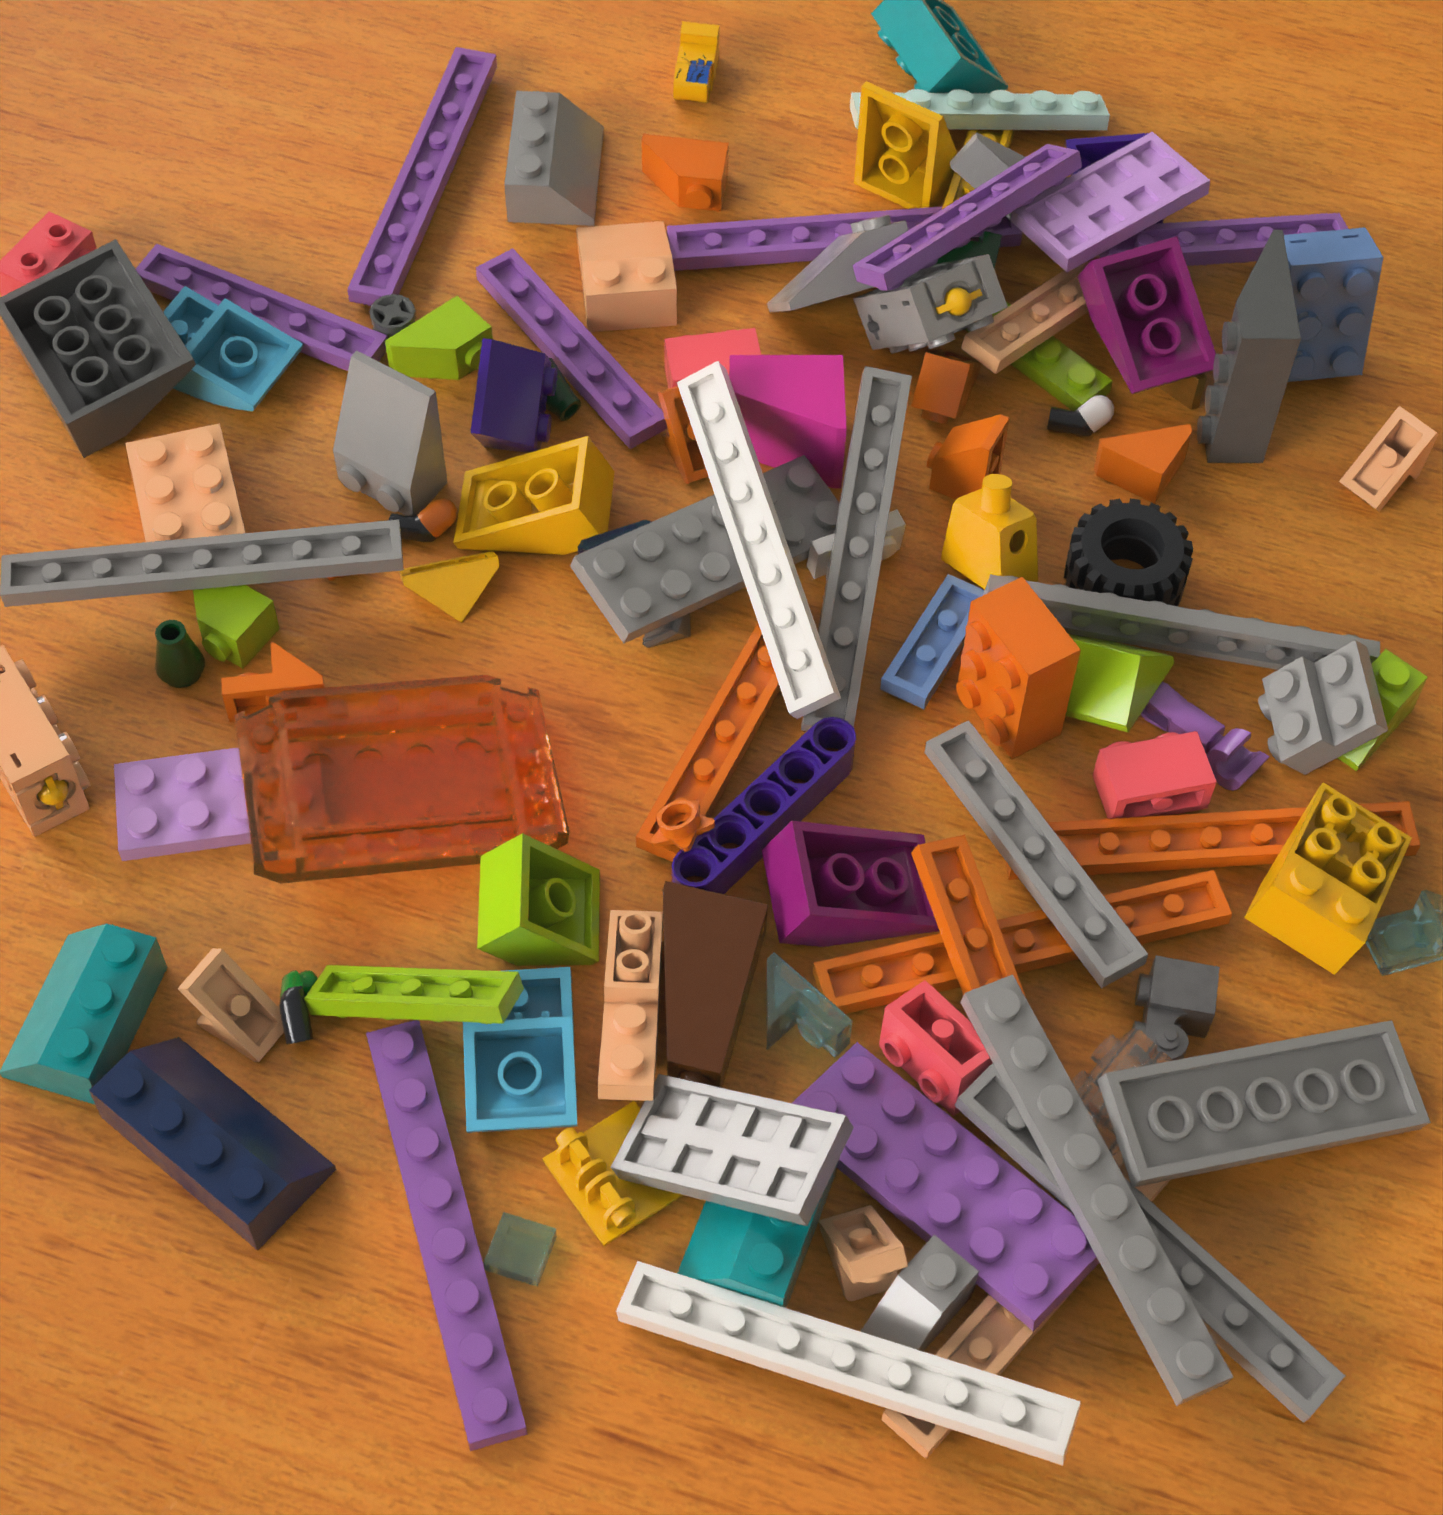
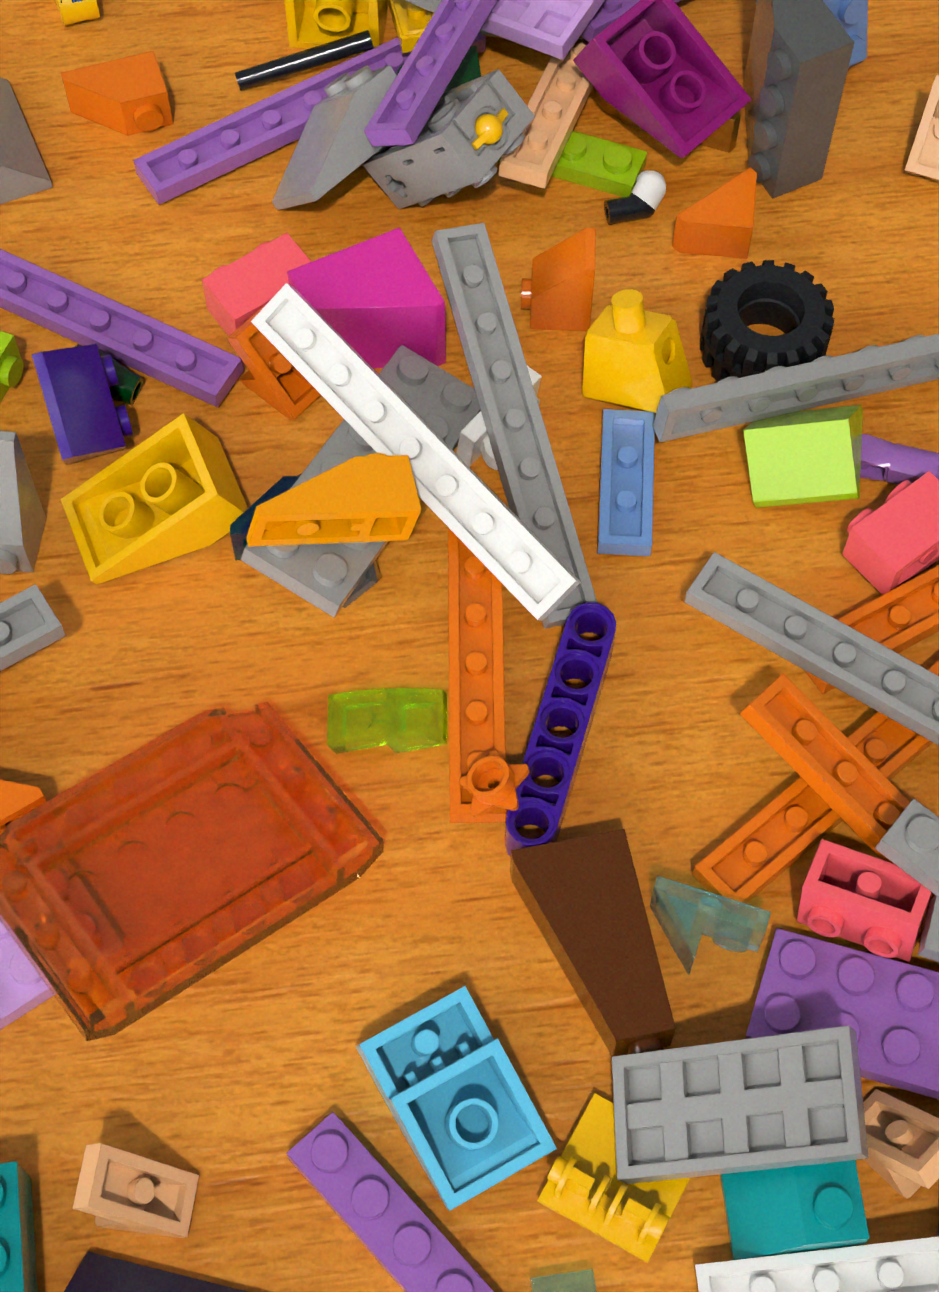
camera: 25 degrees left, 5 degrees up
(293, 1006) = (196, 1161): black arm -> none
(415, 994) = (323, 1091): lime plate -> none
(429, 522) = (54, 569): arm -> none
(452, 583) = (114, 622): yellow slope -> none
(538, 905) = (389, 933): lime slope -> none
(627, 276) = (118, 226): light nougat slope -> none
(631, 1006) = (543, 998): light nougat slope -> none
(634, 744) = (387, 716): none -> clear neon green slope
(670, 552) = (353, 502): none -> light orange slope
(845, 885) = (681, 770): magenta slope -> none
(856, 197) = (304, 60): none -> black bar
(944, 385) = (501, 209): orange slope -> none
(1016, 668) = (735, 478): orange brick -> none

